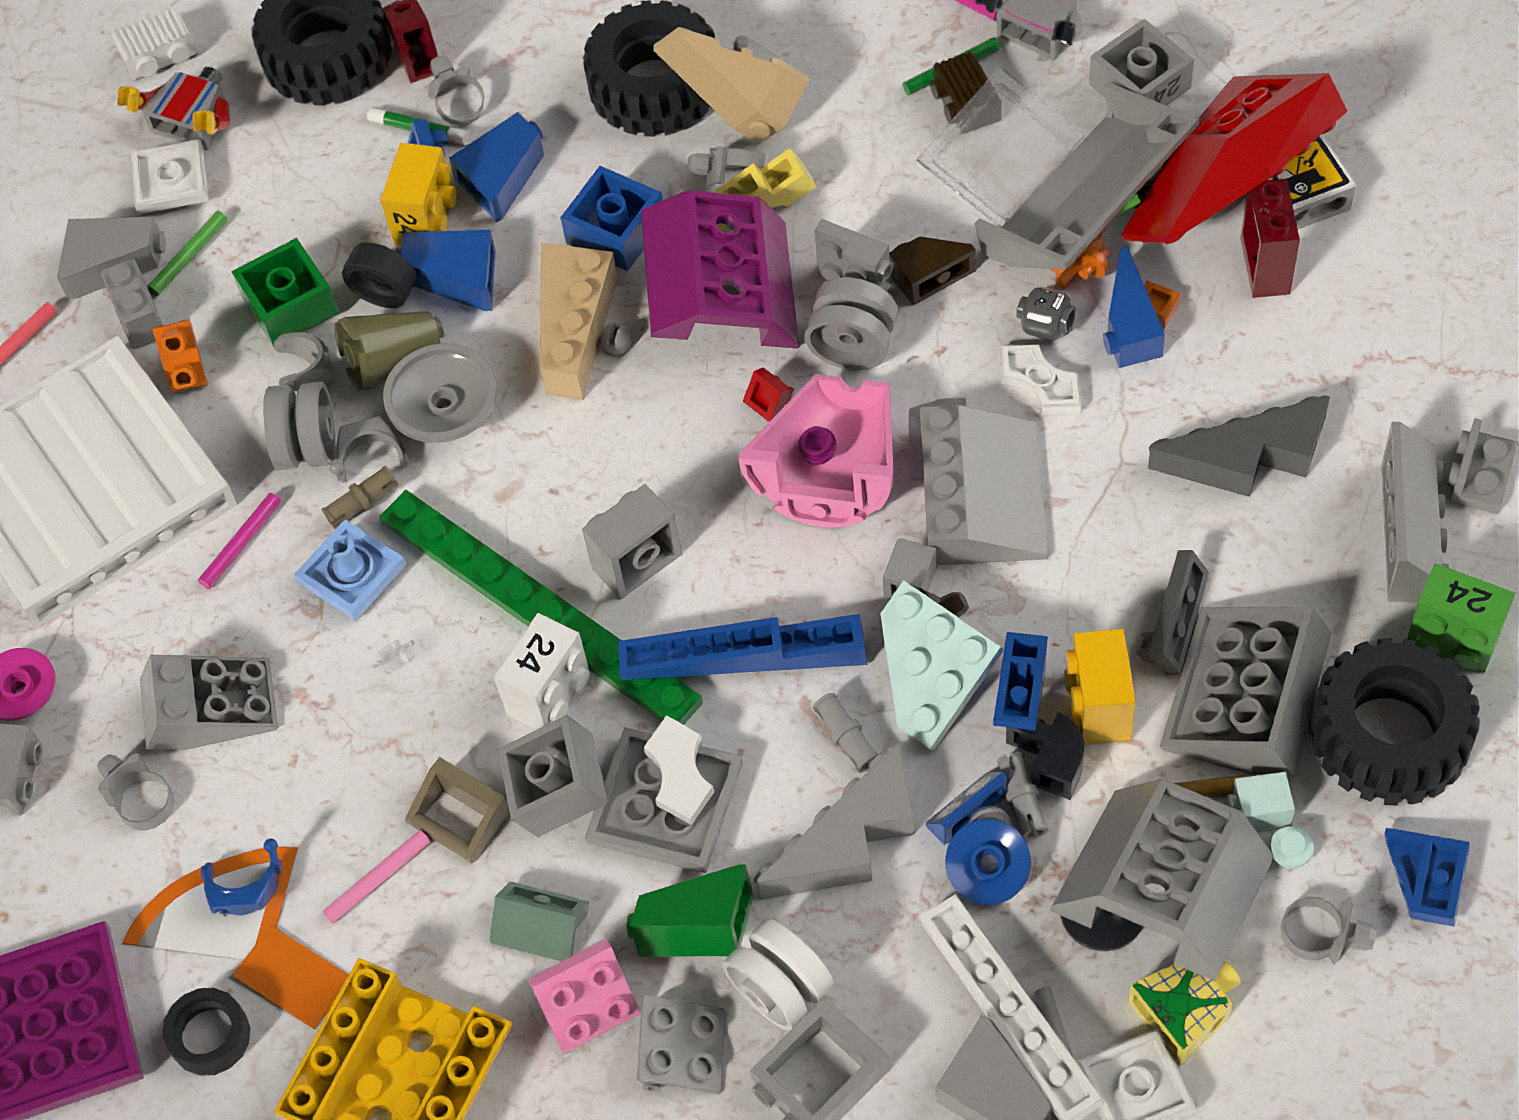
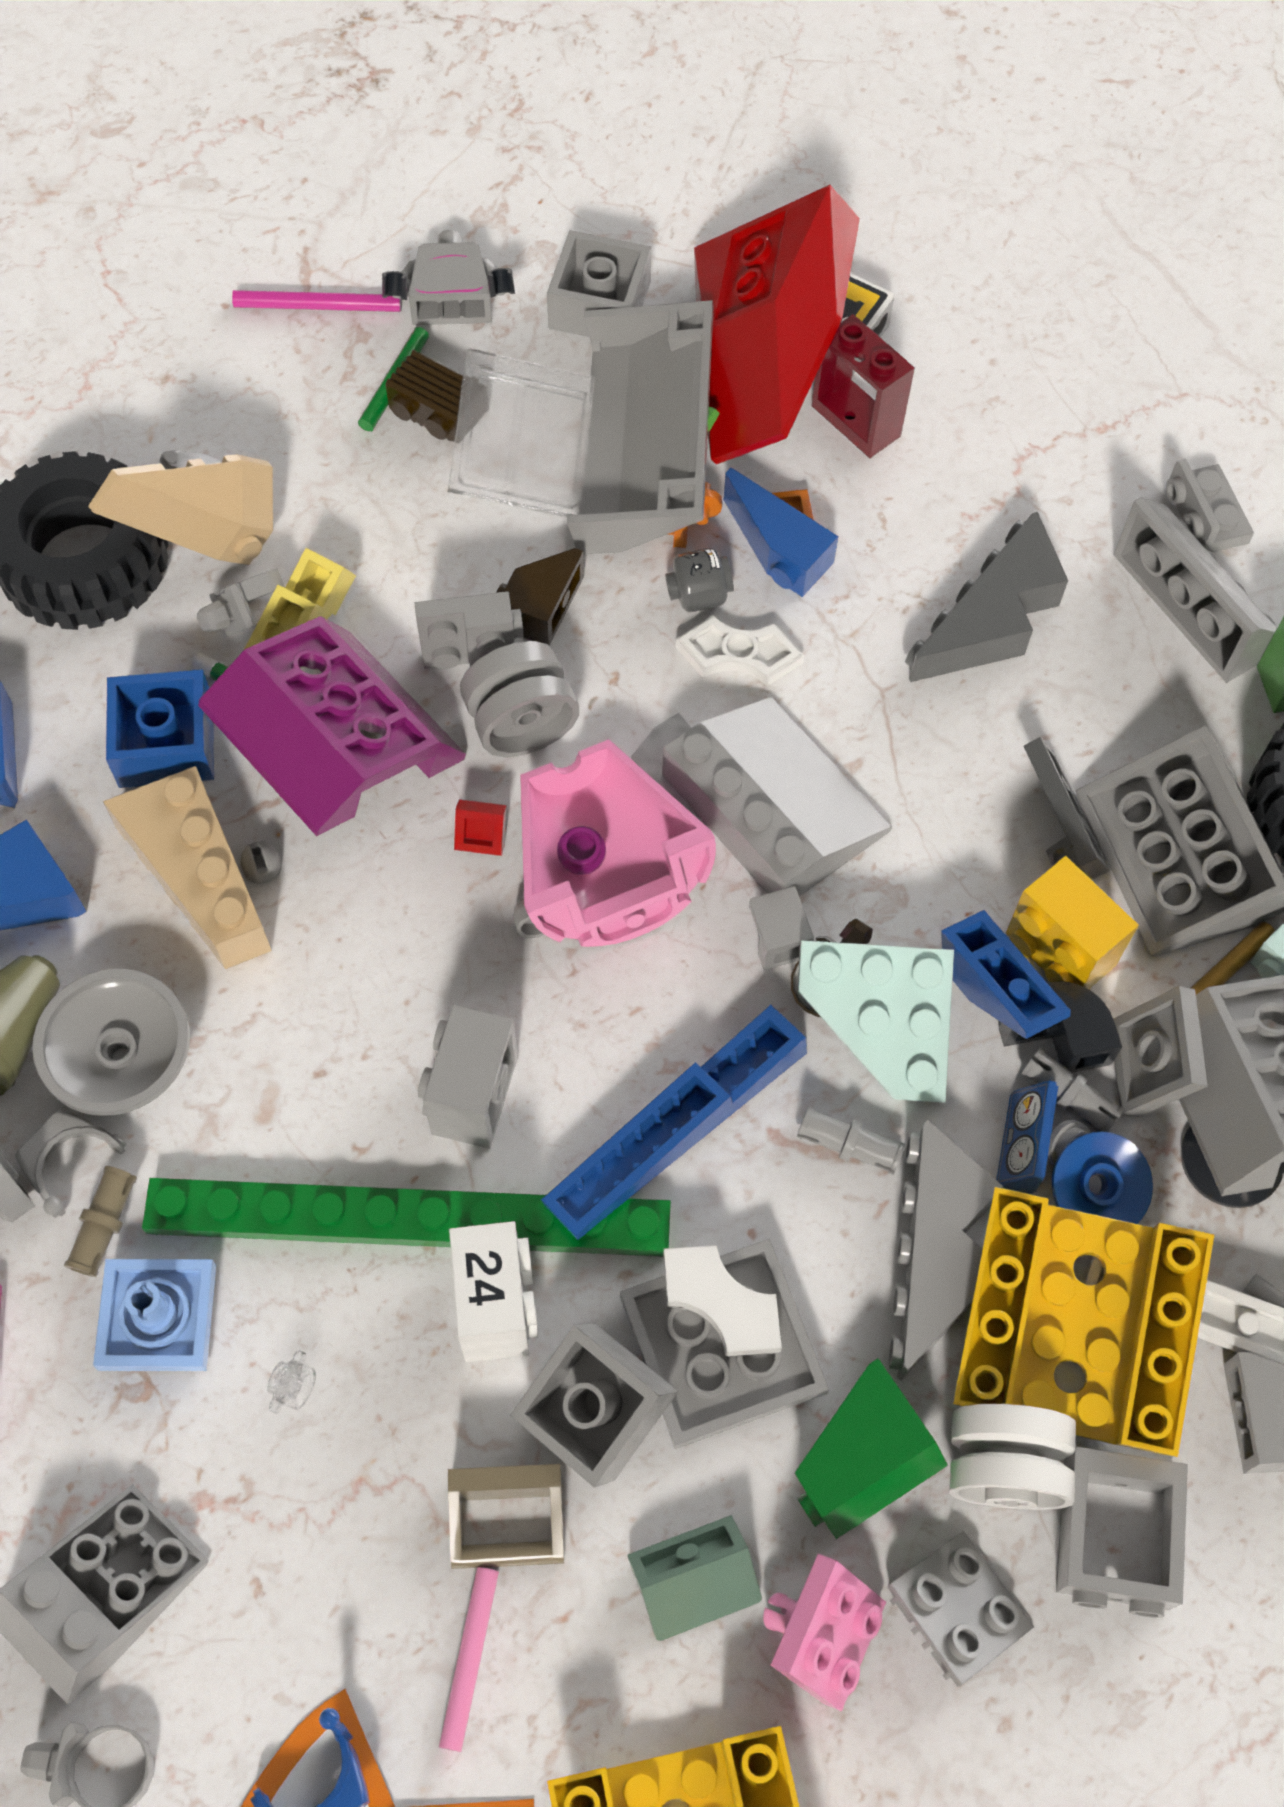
camera: 45 degrees left, 5 degrees up
(870, 905) = (1126, 1332): none -> yellow slope
(1095, 799) = (1159, 1052): none -> light grey plate

